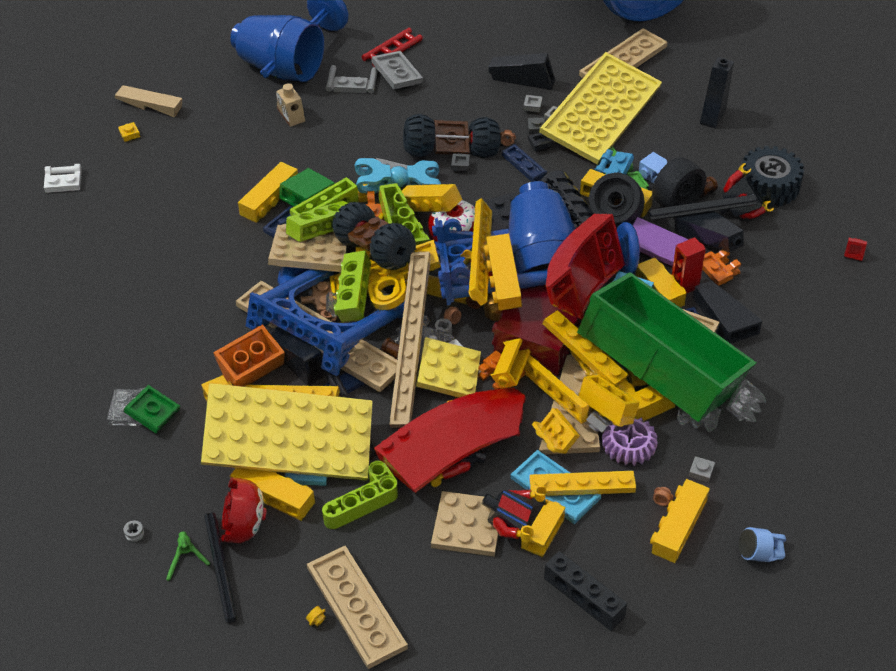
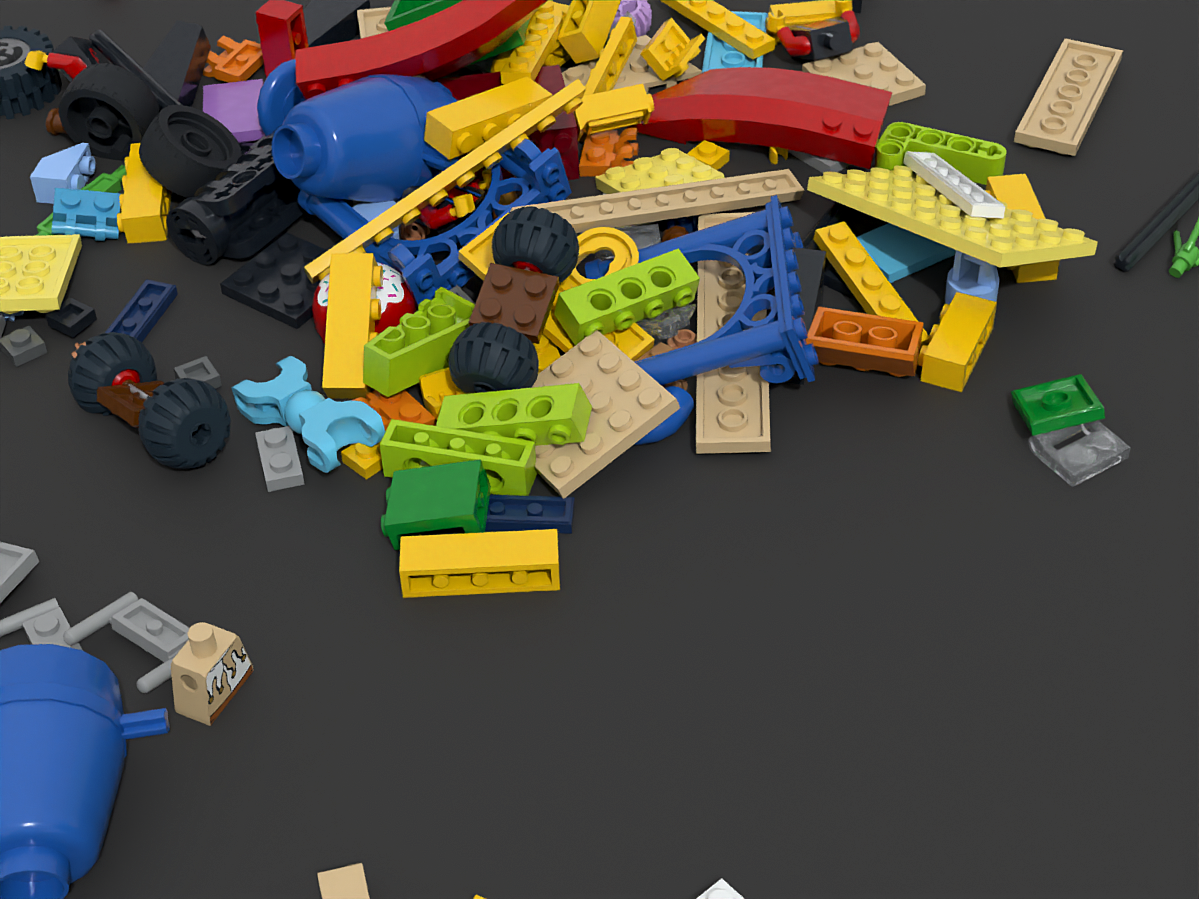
camera: 125 degrees left, 5 degrees down
(242, 511) = (1103, 202): red cylinder -> none
(308, 451) = (954, 185): none -> white tile
(316, 616) = (1126, 119): yellow plate -> none
(327, 103) = (142, 625): none -> light grey plate

